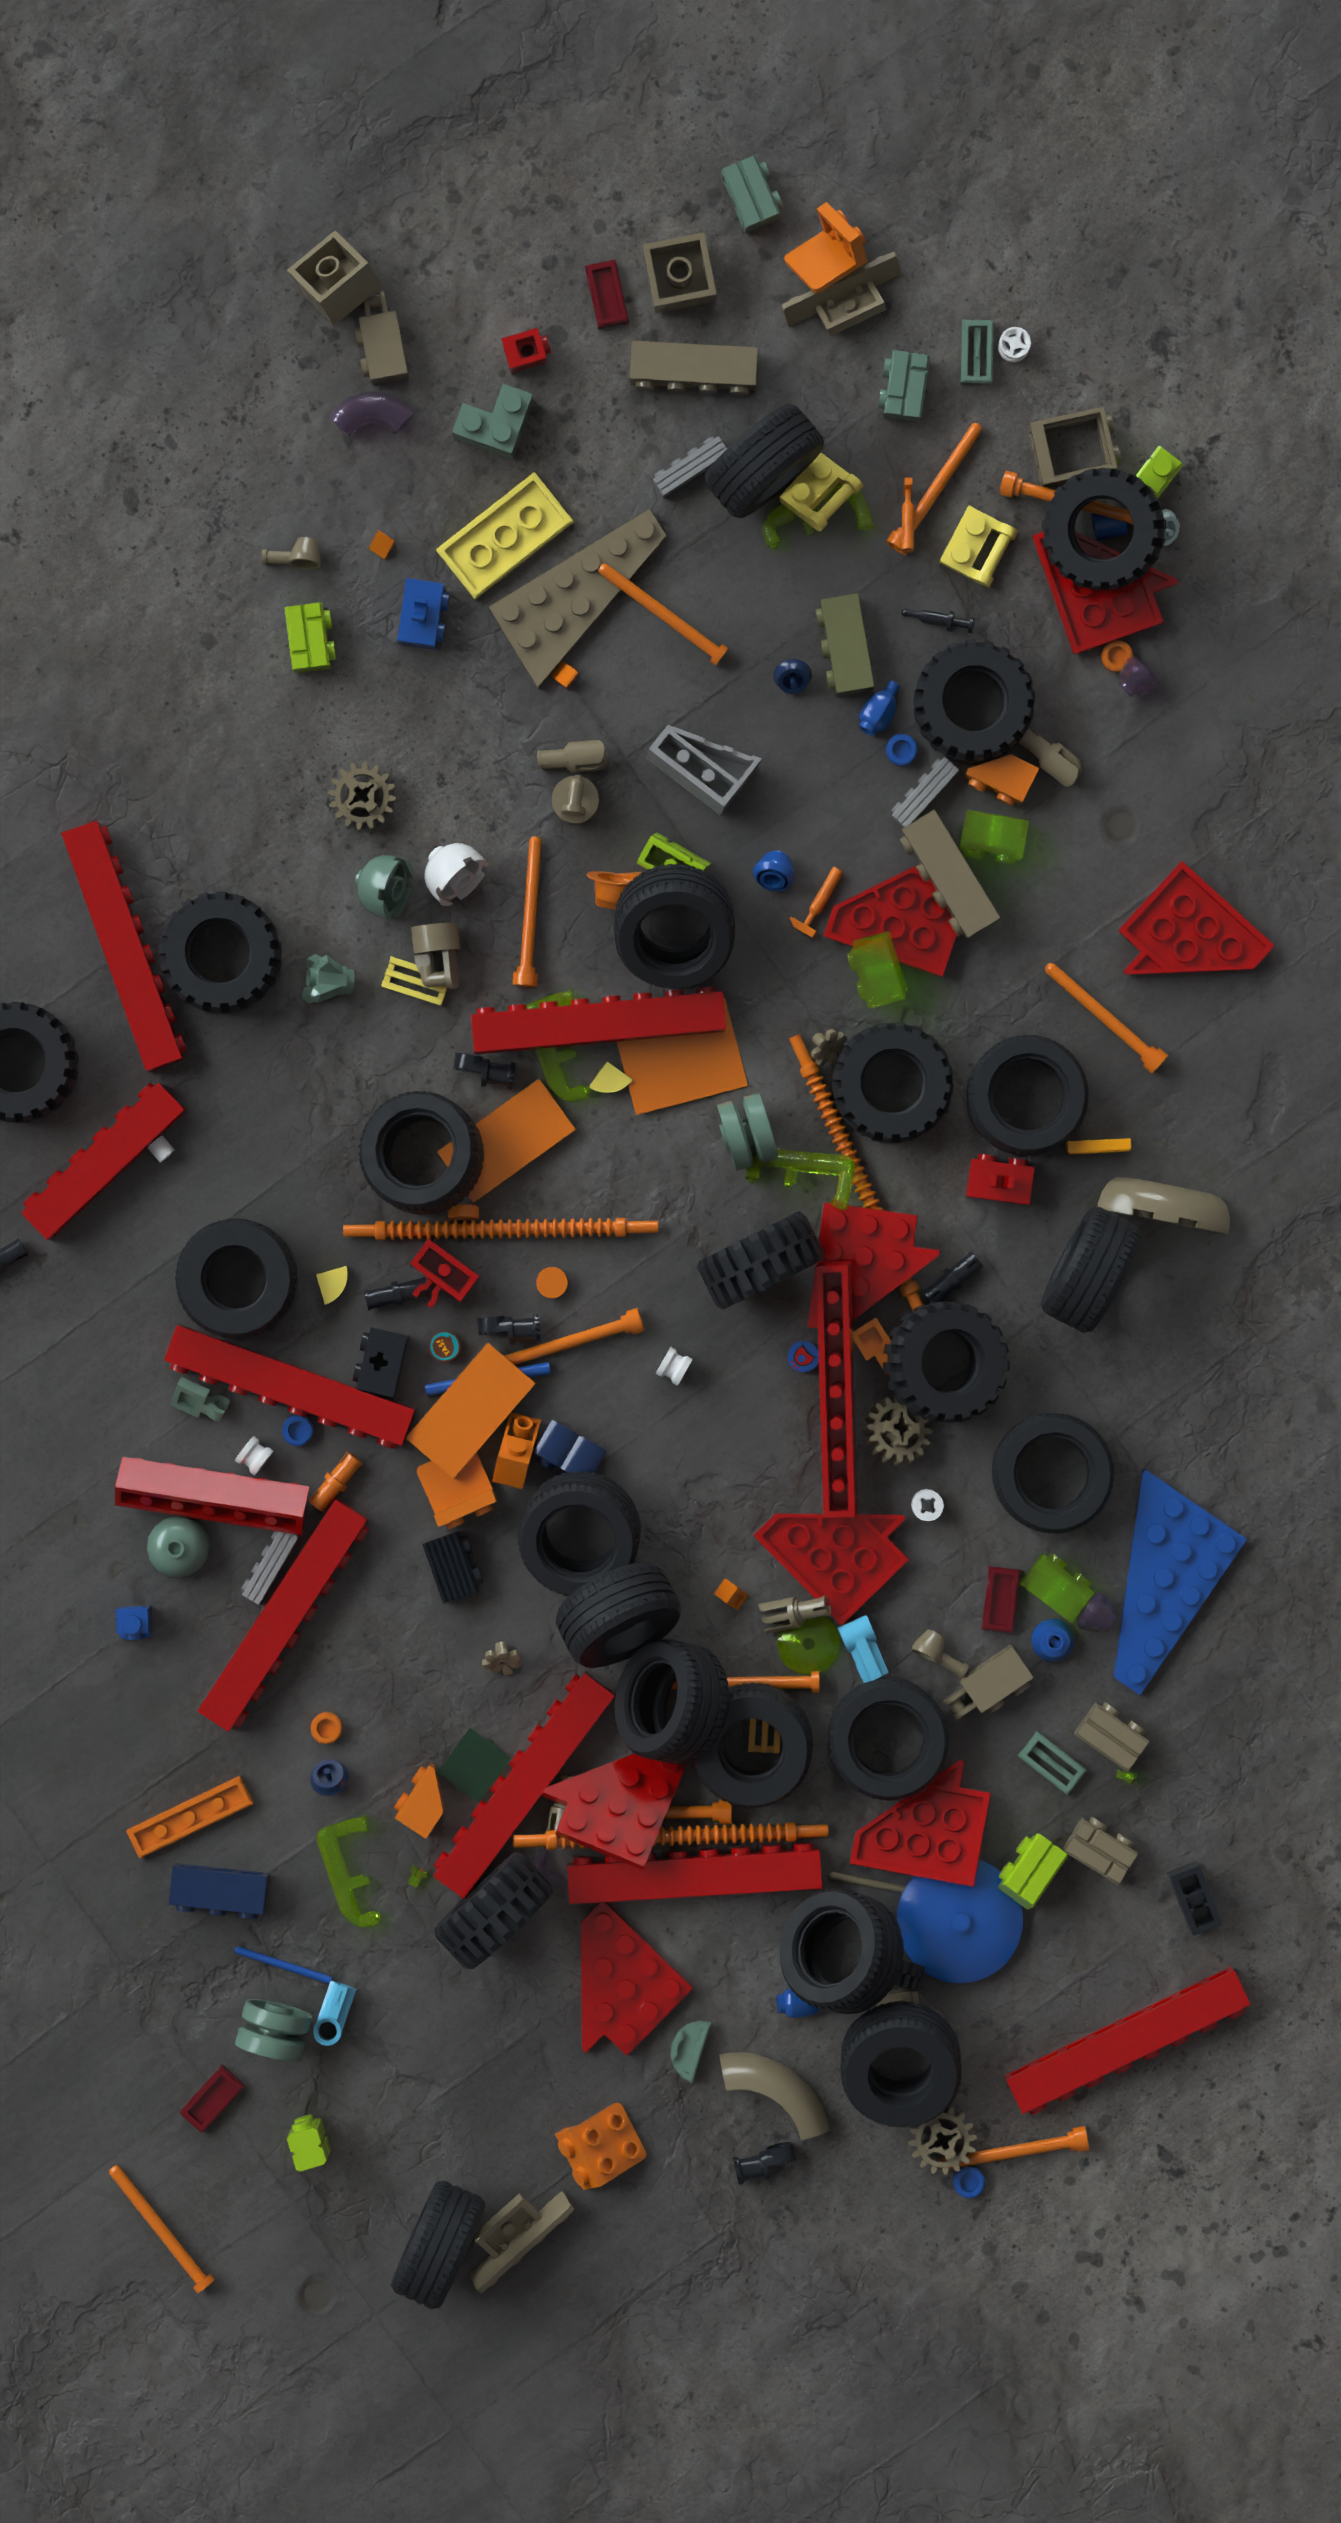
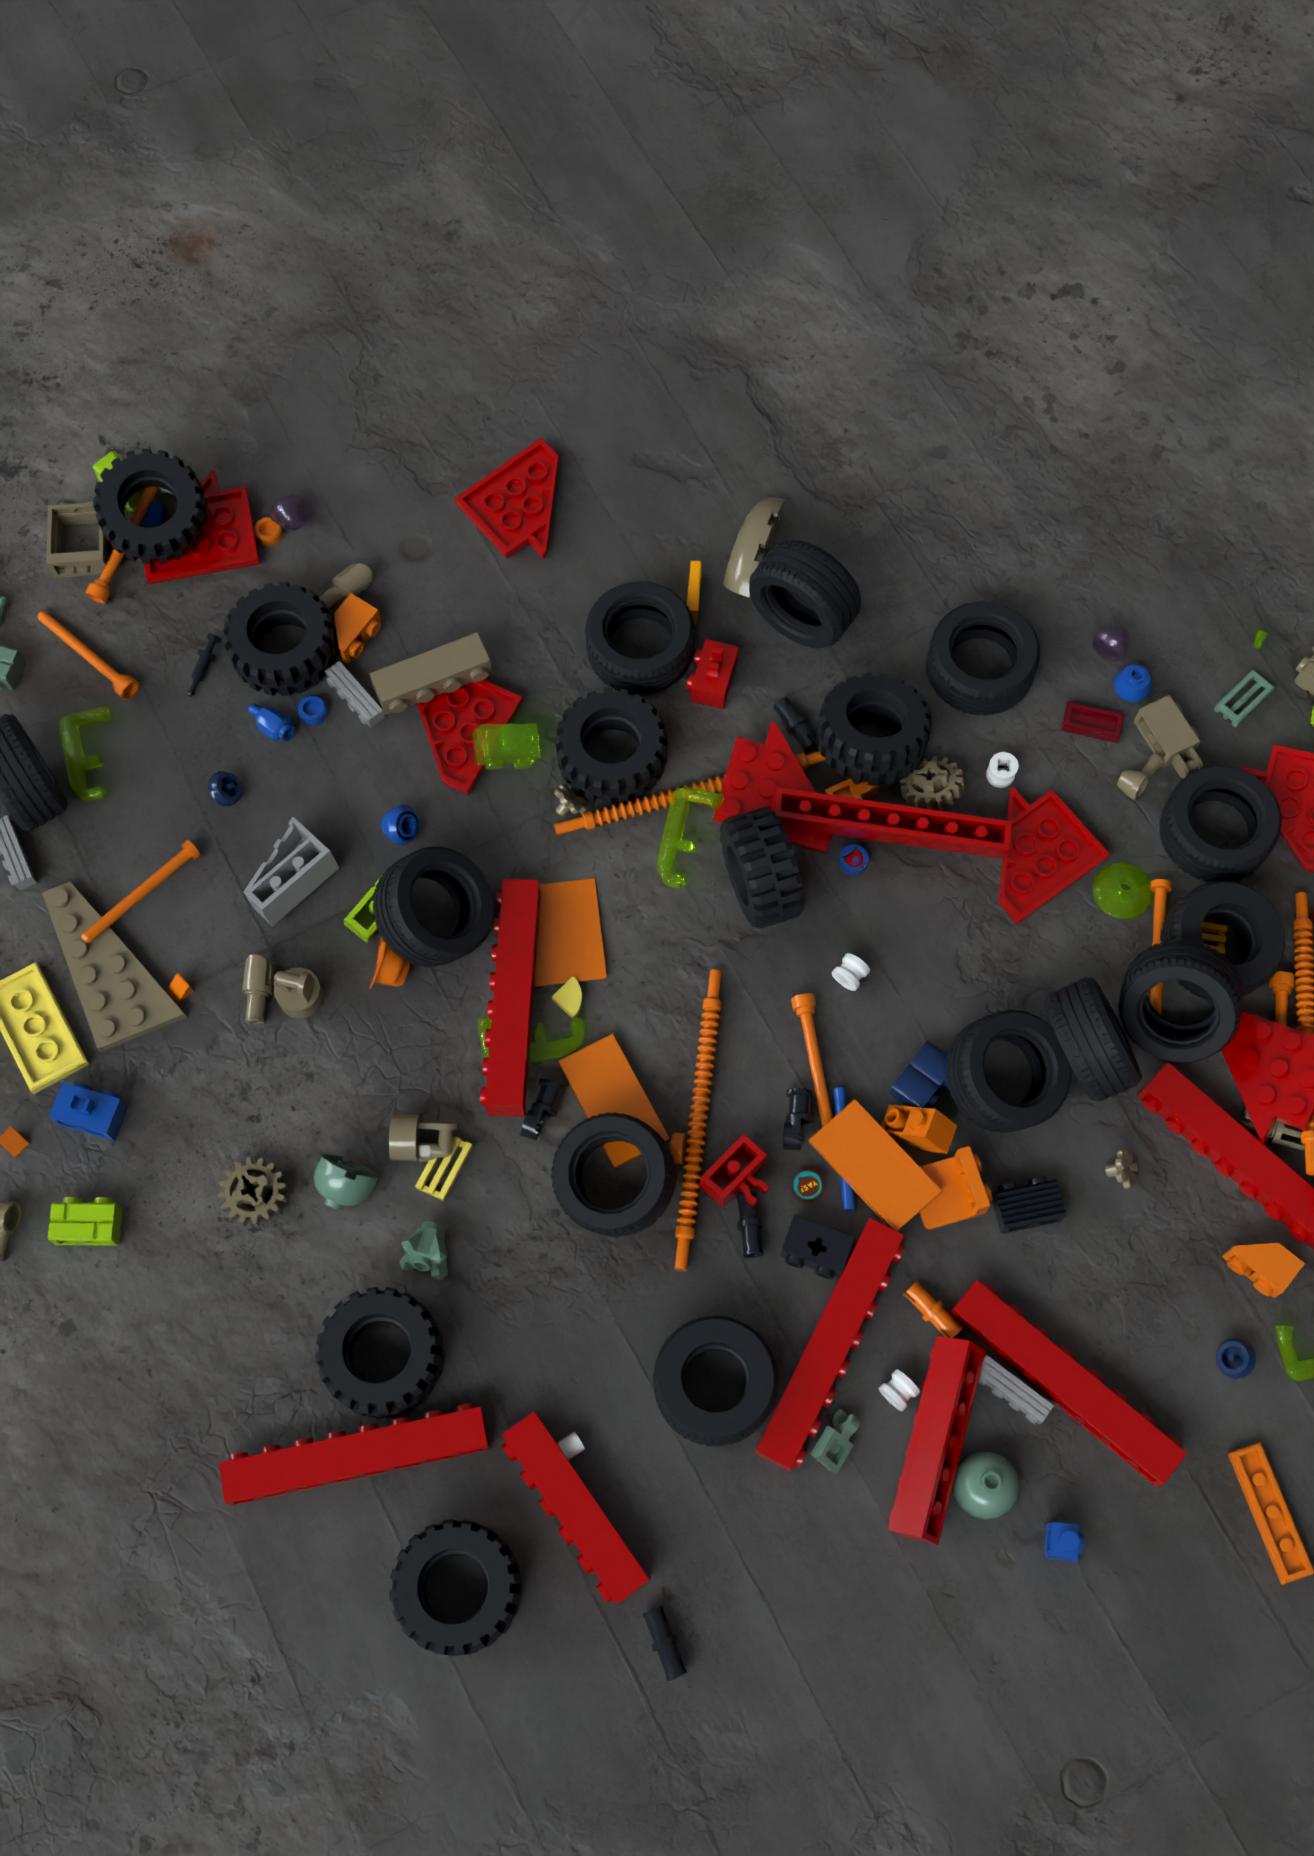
camera: 80 degrees left, 20 degrees down
(297, 1430) = (876, 1343): blue tile -> none
(326, 1727) = (1183, 1355): orange tile -> none
(332, 1283) = (732, 1288): light yellow tile -> none
(453, 872) = (343, 1112): white cylinder -> none
(474, 1765) = (1226, 1213): clear green piece -> none
(525, 974) = (455, 1060): orange piece -> none
(552, 1282) = (757, 1075): orange tile -> none
(731, 1594) = (1071, 952): orange piece -> none
(747, 1131) = (637, 872): sand green wheel -> none
(796, 1611) = (1095, 896): dark tan arm -> none
(814, 485) = (56, 747): light yellow plate -> none
(818, 902) = (437, 796): orange piece -> none
(845, 645) = (207, 740): olive brick -> none
(861, 1643) = (1125, 841): medium azure piece -> none
(907, 542) = (102, 673): orange piece -> none
(968, 542) = (140, 633): light yellow plate -> none
(993, 836) = (403, 637): clear neon green brick -> none
(1057, 1587) = (1085, 671): clear neon green brick -> none
(1112, 1736) = (1223, 644): dark tan brick -> none
(1149, 1055) = (622, 543): orange piece -> none
(1171, 1572) = (1074, 580): blue wing -> none

